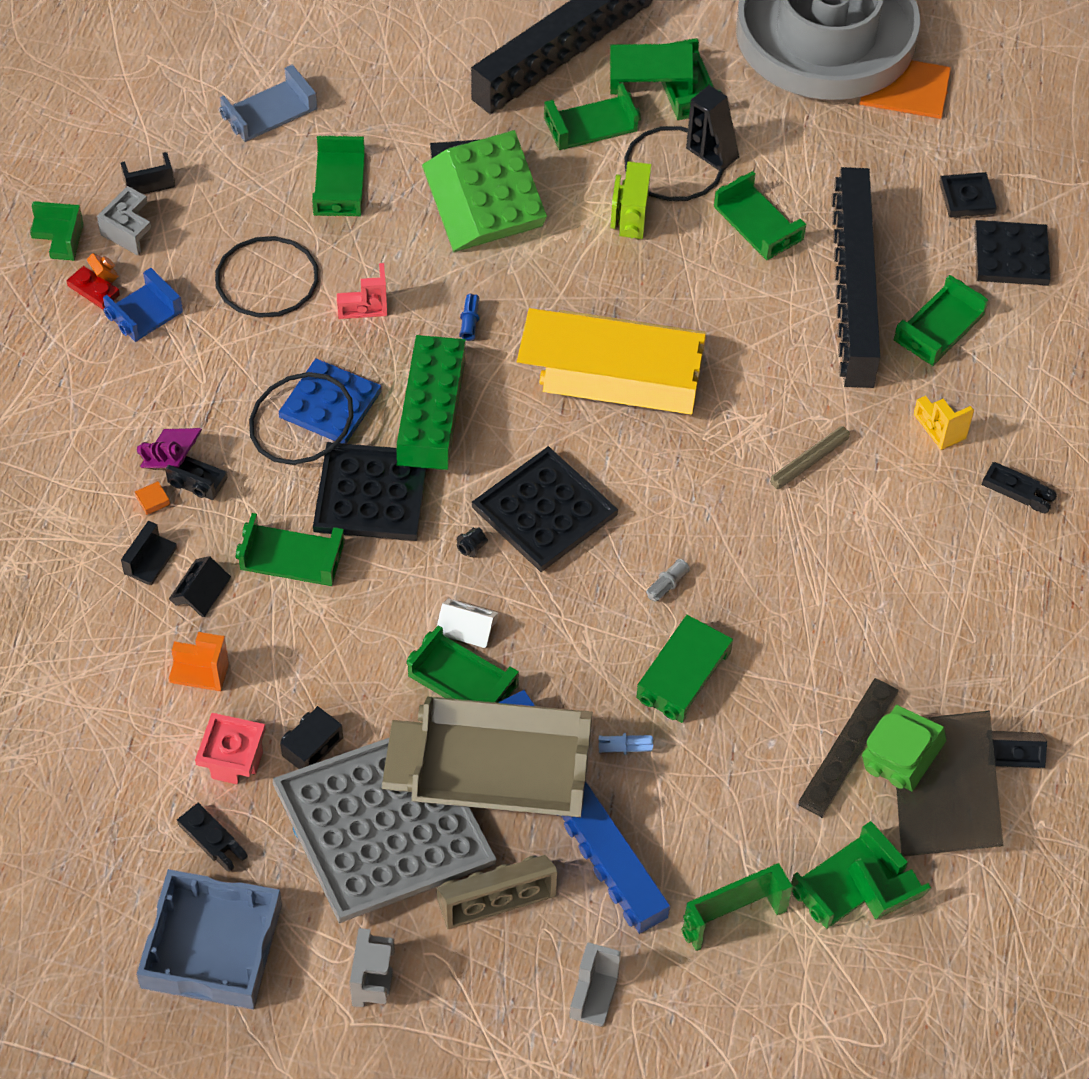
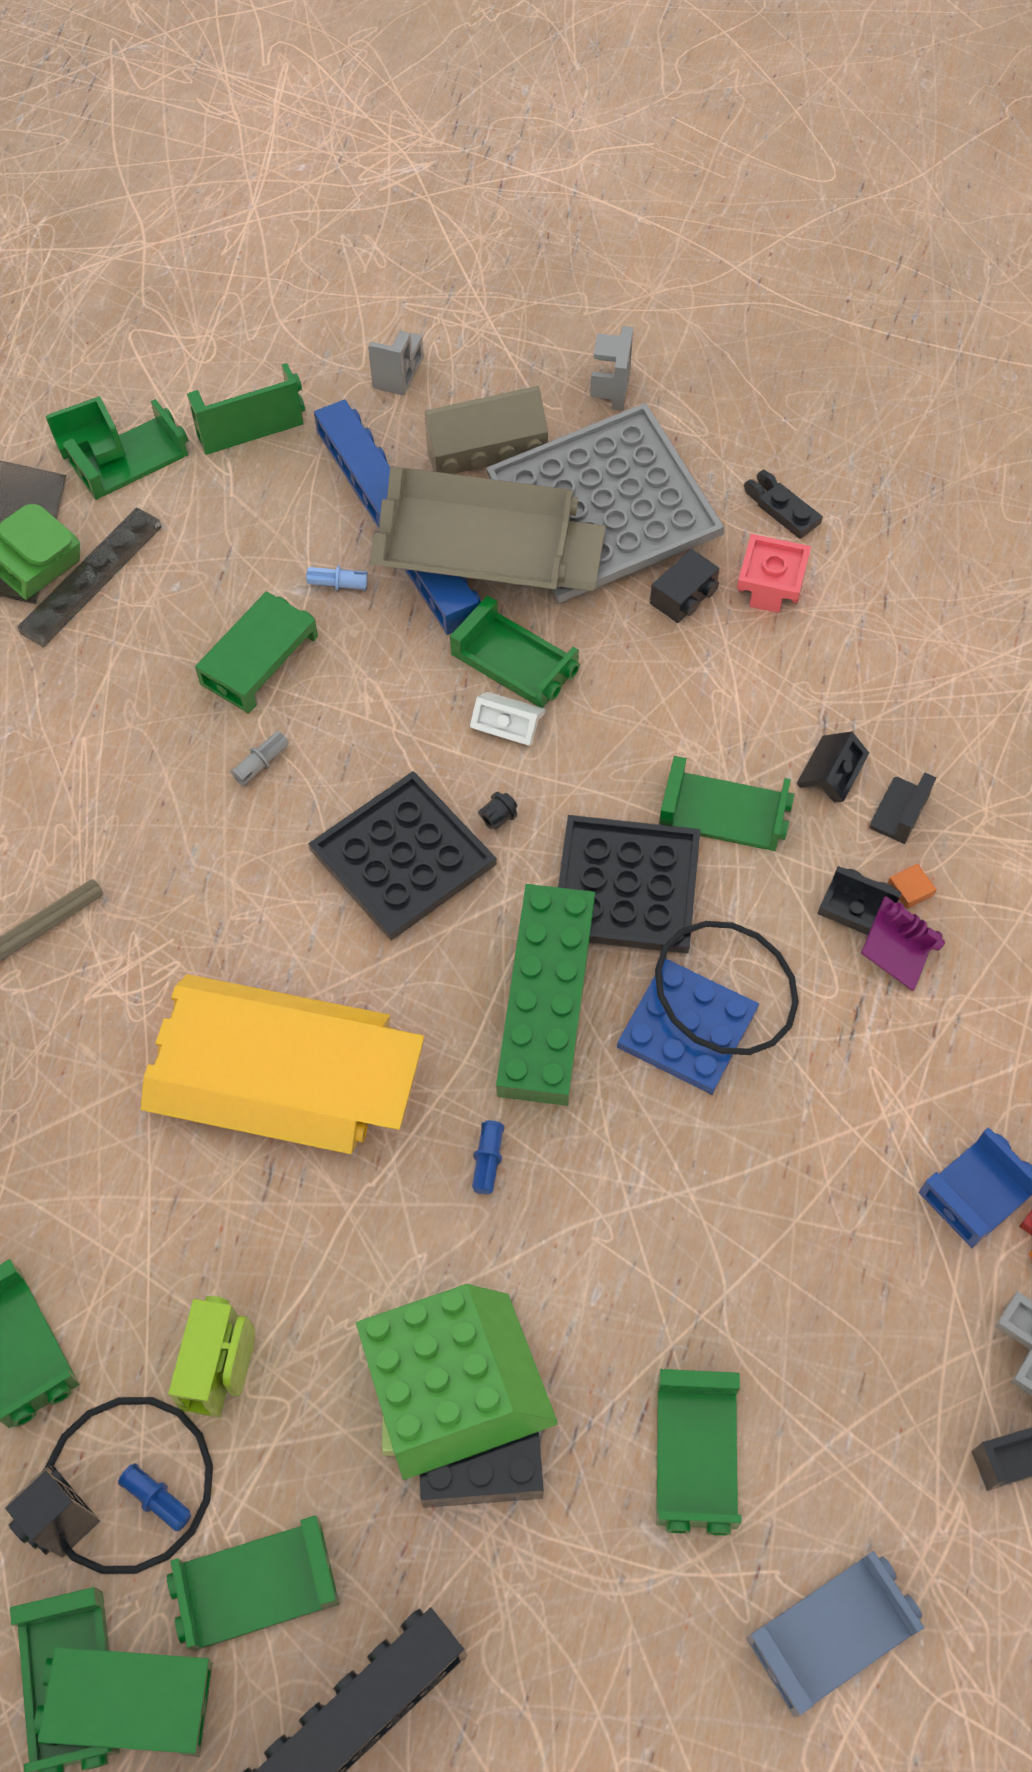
camera: 175 degrees left, 5 degrees up
(200, 664) = (814, 671): orange panel -> none
(210, 939) = (772, 407): sand blue tile -> none
(269, 314) = (776, 1324): black piece -> none
(368, 302) = (648, 1188): coral panel -> none
(655, 151) = (154, 1497): none -> blue axle

